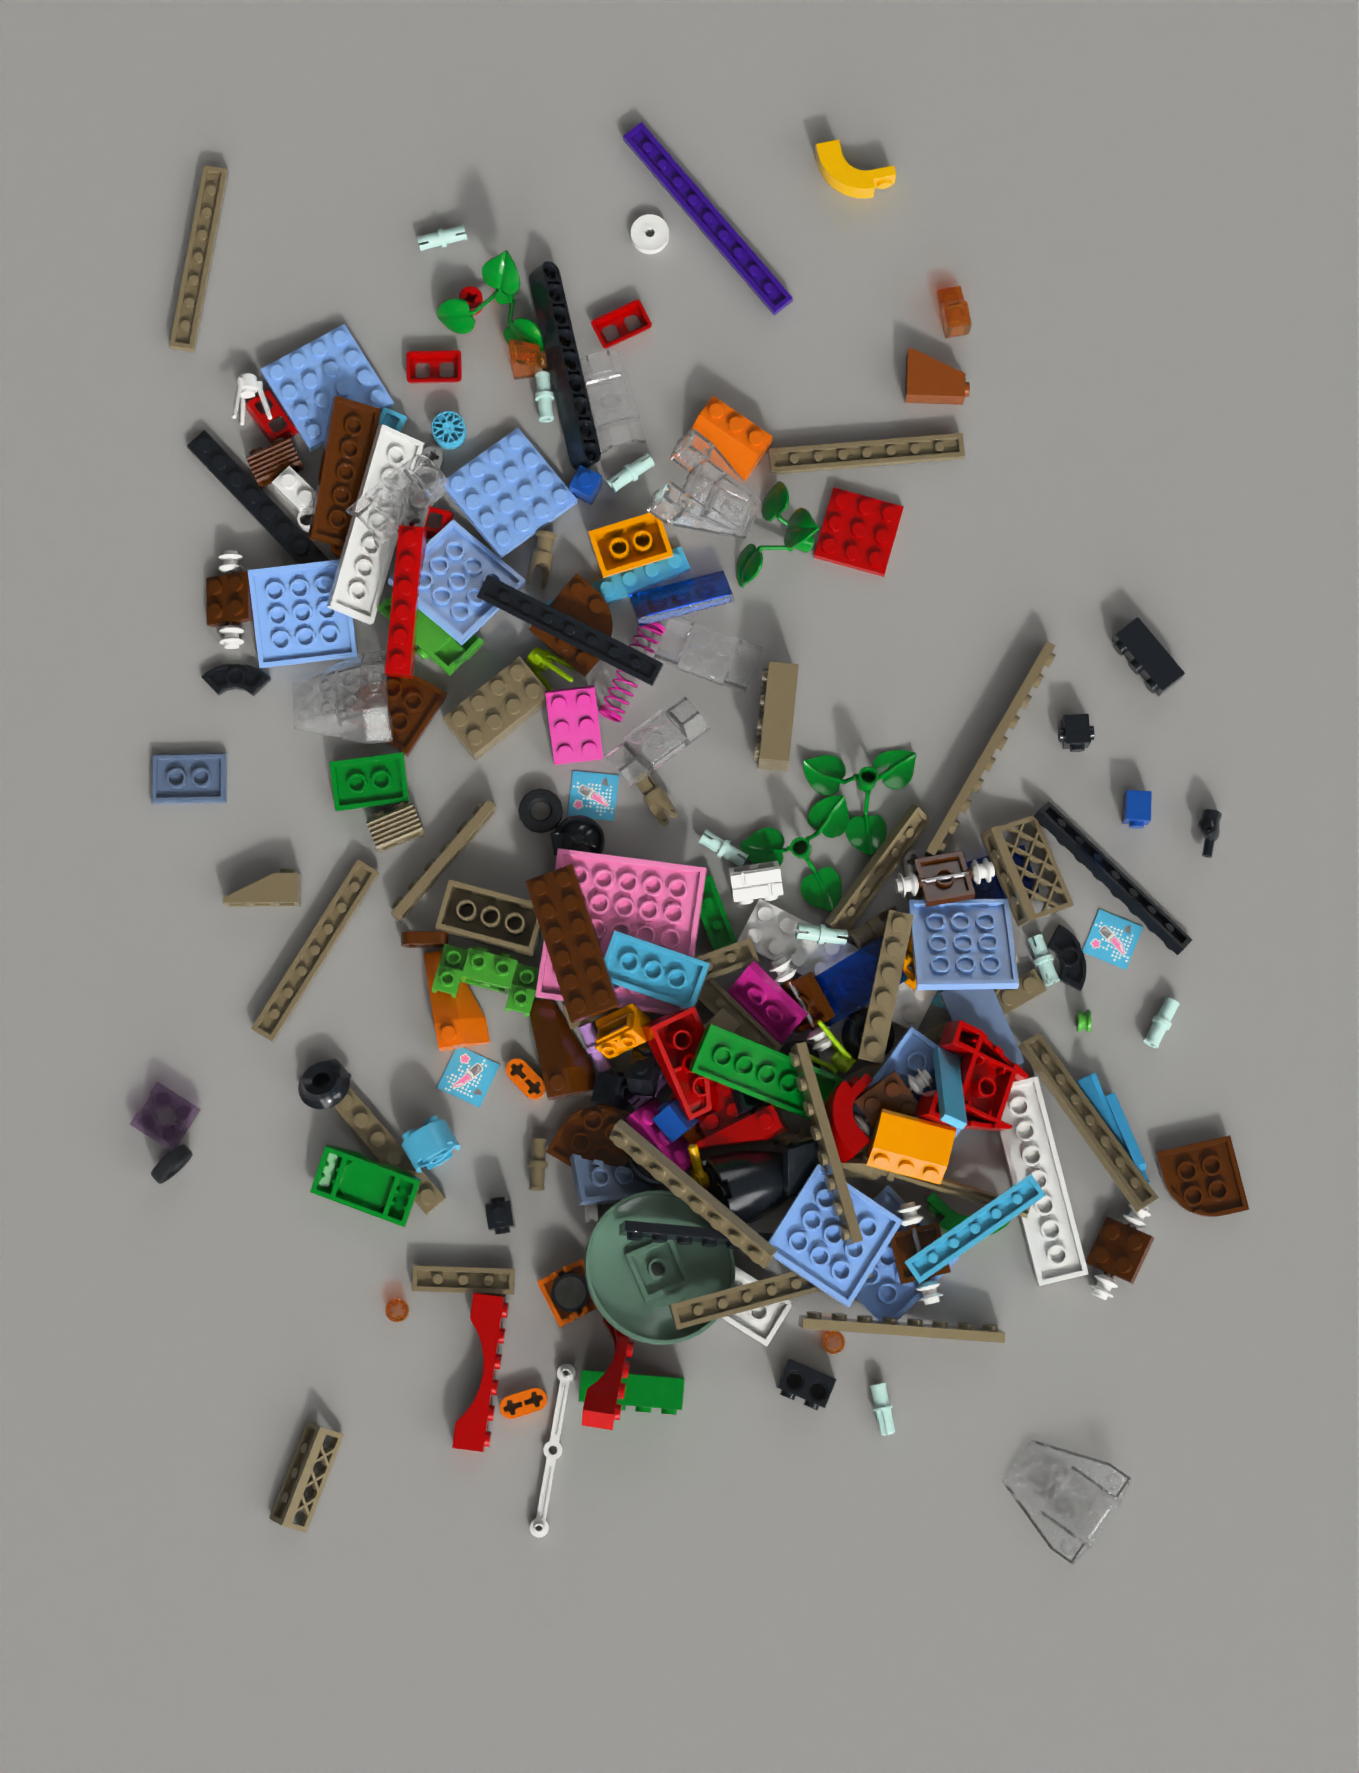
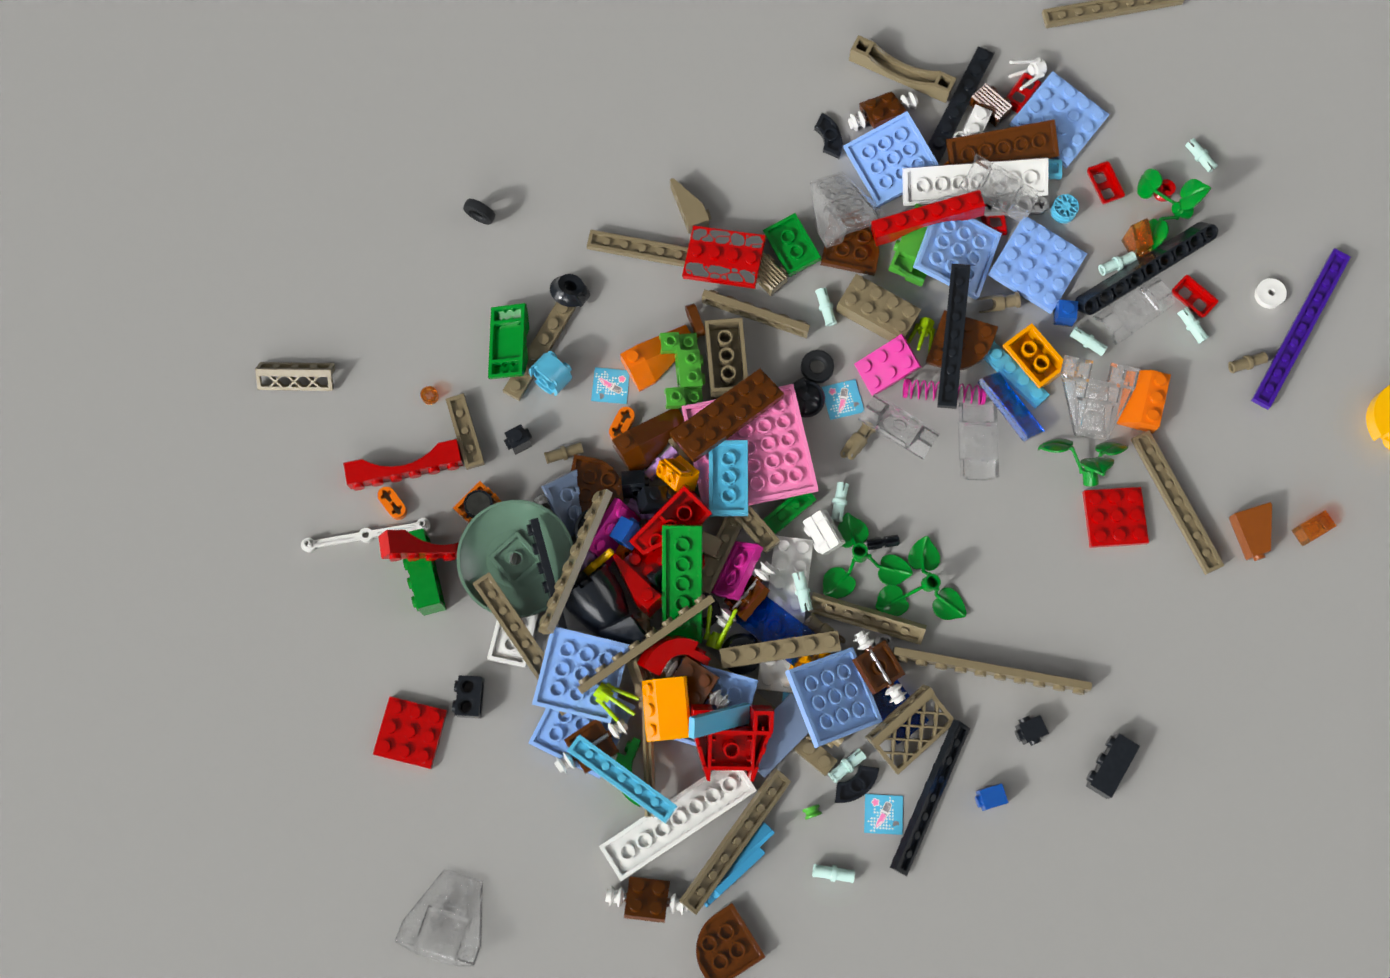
camera: 70 degrees right, 5 degrees down
(157, 579) = (871, 56): none -> dark tan arch
(182, 1112) = (518, 206): clear purple brick -> none
(189, 778) = (748, 131): sand blue tile -> none
(356, 872) = (724, 257): none -> red plate
(467, 770) = (826, 306): none -> light aqua pin
(656, 341) = (1193, 325): none -> light aqua pin
(726, 298) = (1248, 362): none -> dark tan pin
(778, 715) = (952, 503): dark tan brick -> none
(790, 820) = (887, 541): none -> black piece
(823, 1471) = (410, 732): none -> red plate
(835, 1350) = (501, 710): clear orange bush -> none
(868, 1214) = (605, 694): none -> lime plant
(883, 1409) = (469, 760): light aqua axle -> none
(891, 1326) = (534, 759): dark tan plate -> none
(1210, 829) = (998, 860): black piece -> none

